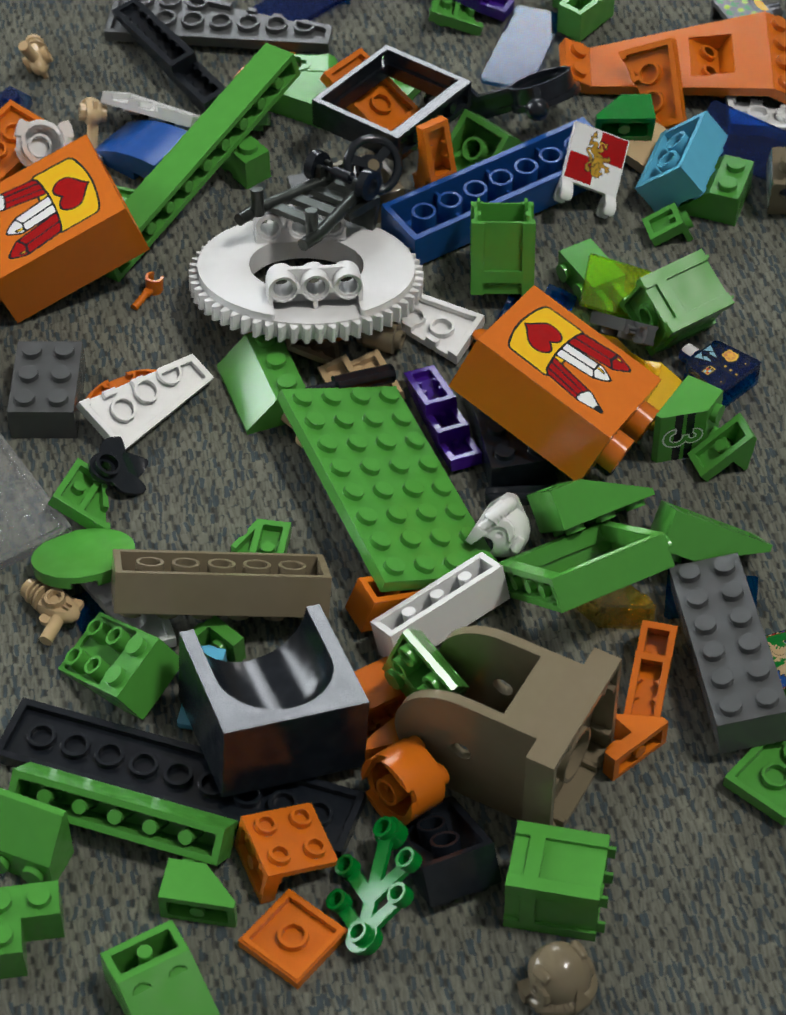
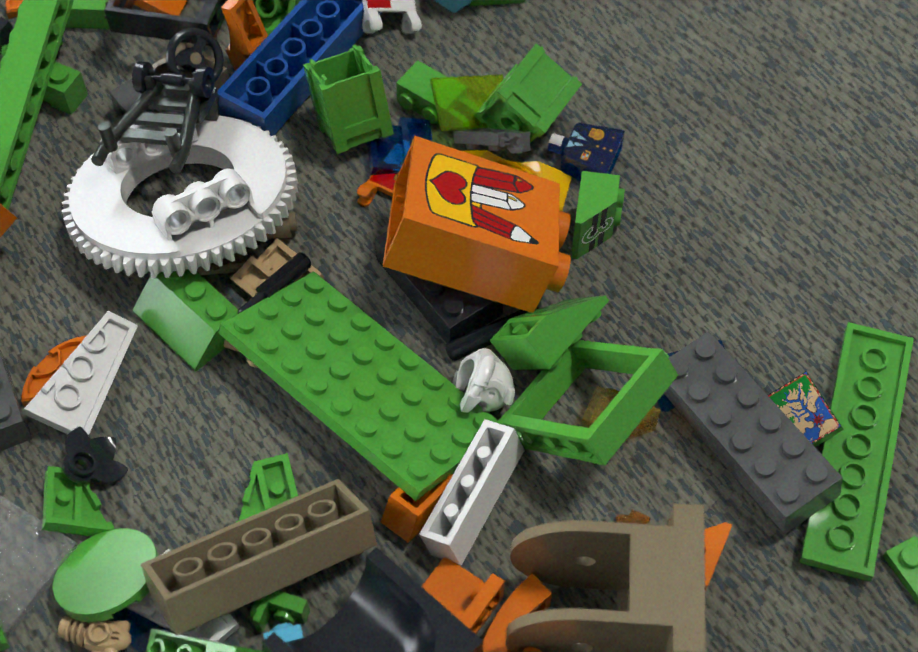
camera: 25 degrees left, 10 degrees up
(152, 288) = (29, 252): orange hand -> none
(419, 666) = (512, 582): bright green slope -> none
(442, 326) = (327, 194): white wing -> none
(442, 418) = (370, 287): dark purple slope -> none
(651, 669) = (685, 469): orange slope -> none
(667, 224) = (472, 22): bright green bracket -> none
(702, 537) = (665, 323): bright green slope -> none
(728, 444) = (633, 227): bright green slope -> none

